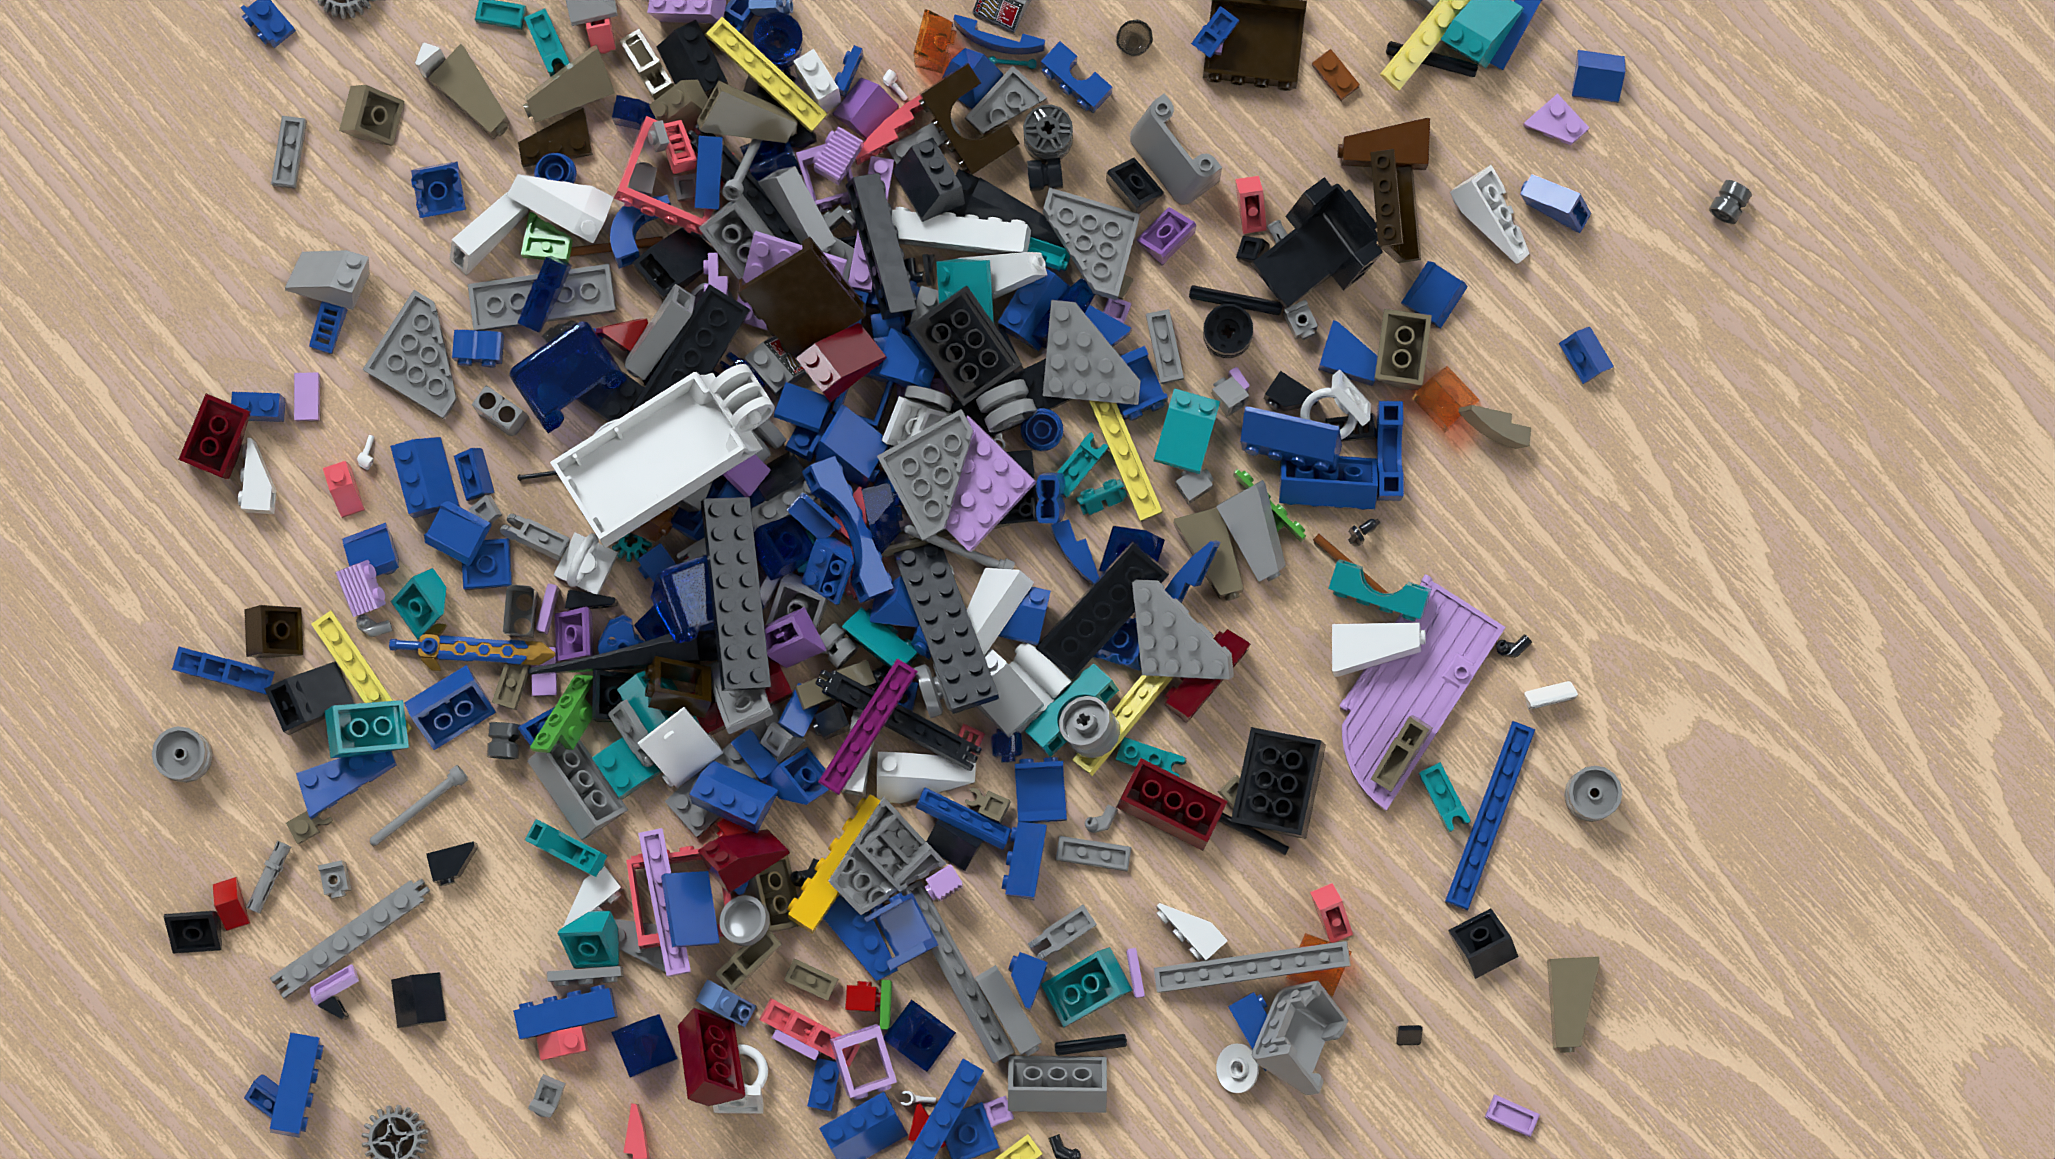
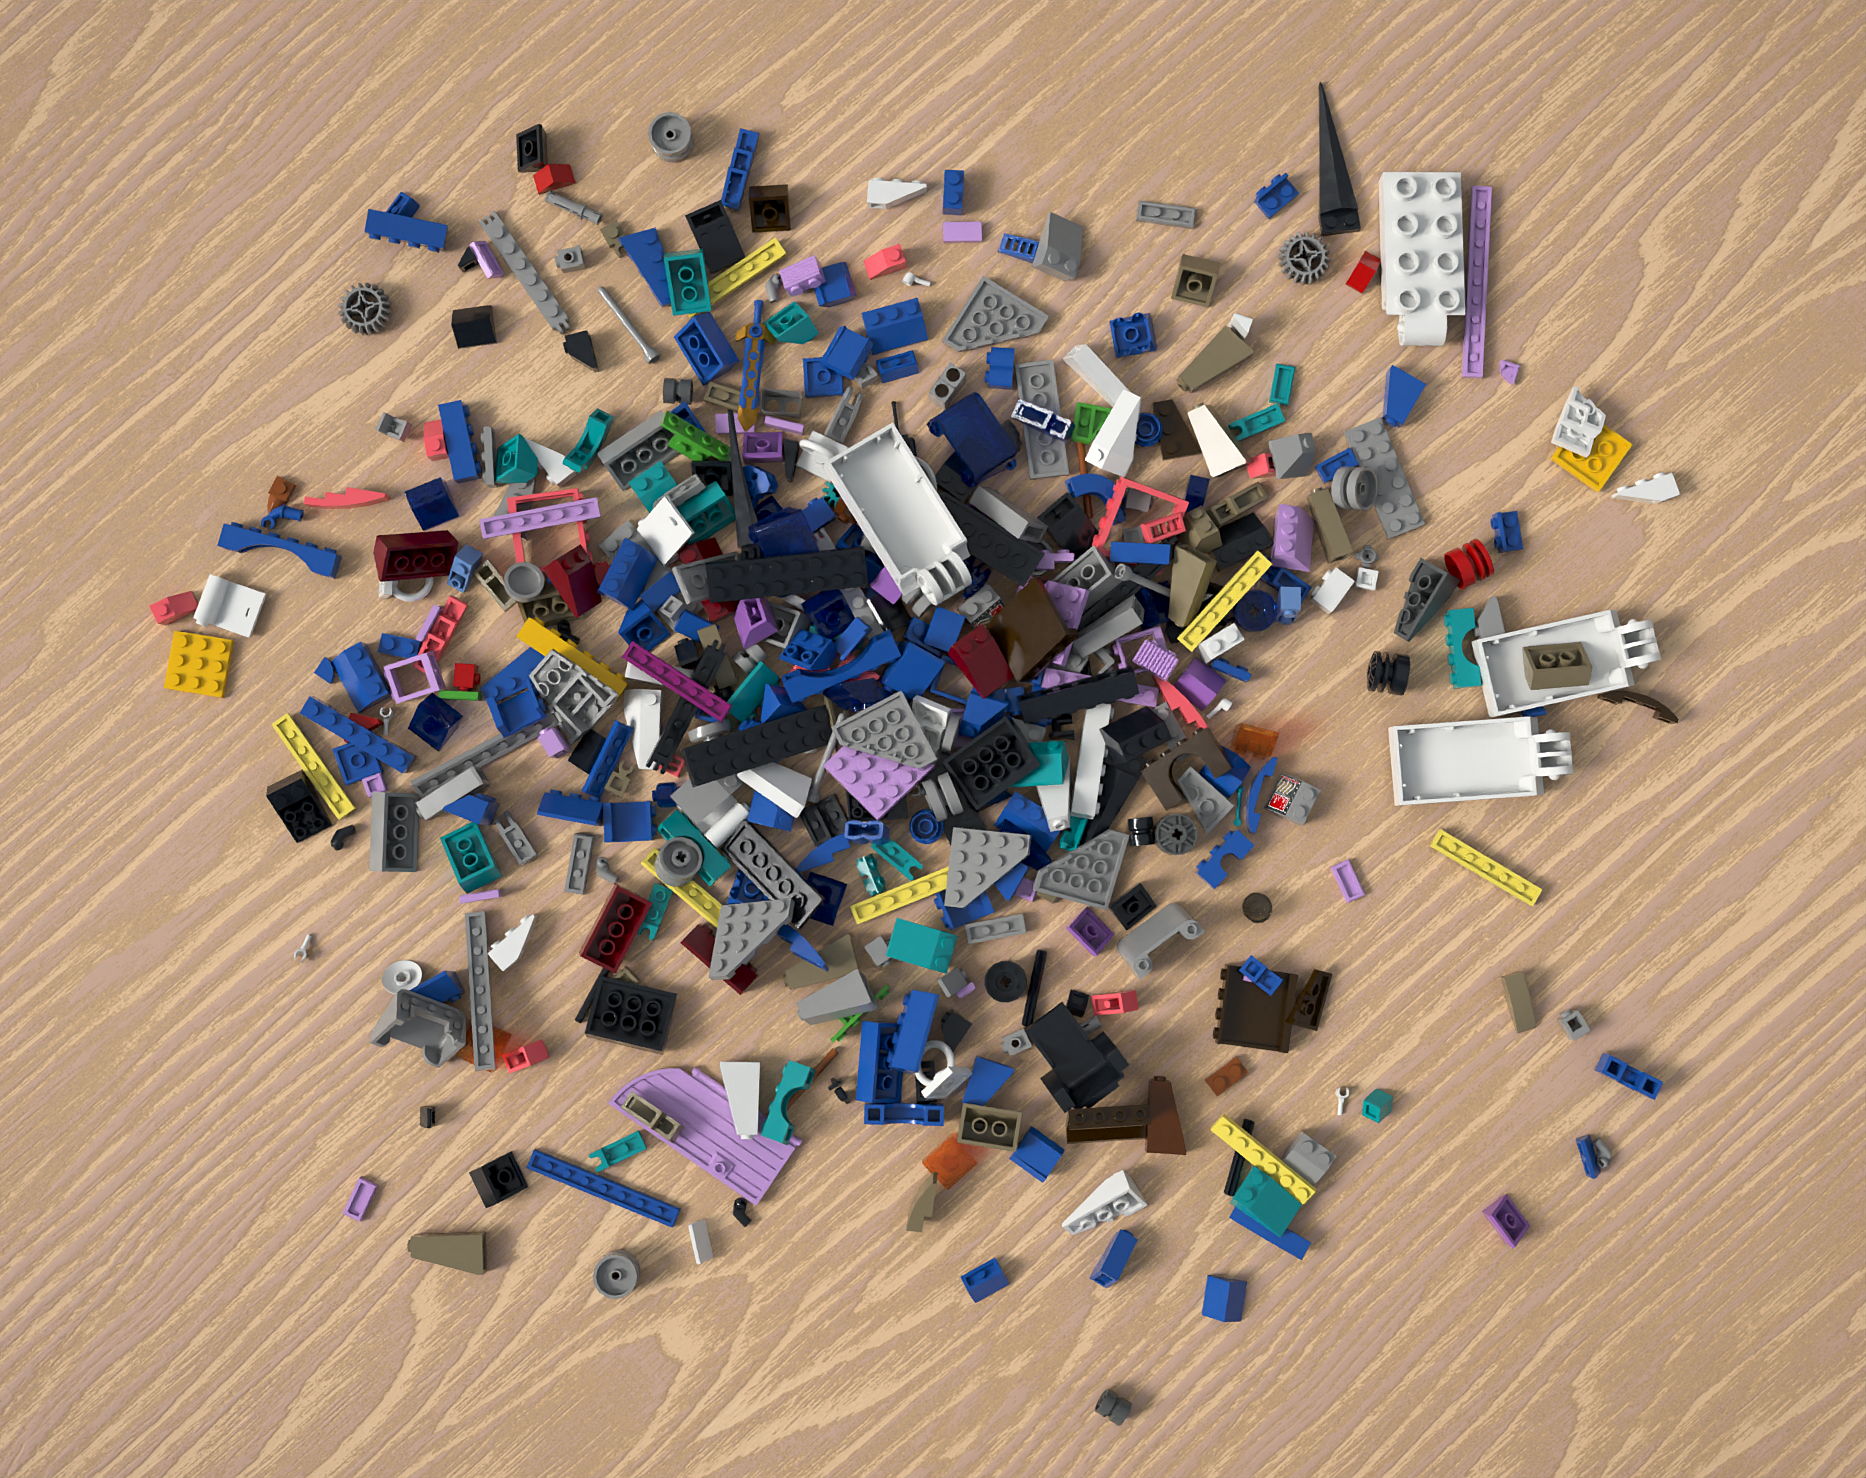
camera: 85 degrees right, 5 degrees up
(216, 437) = (925, 158): dark red slope -> none
(624, 334) = (1010, 486): red slope -> none
(657, 136) = (1169, 511): light grey plate -> none
(673, 700) = (700, 525): dark brown window -> none
(690, 909) = (533, 538): blue tile -> none
(811, 979) = (482, 636): dark tan plate -> none
(1035, 552) = (824, 819): none -> black slope
(1090, 1044) = (425, 859): black axle -> none
(1557, 121) = (1185, 1262): lavender wing -> none

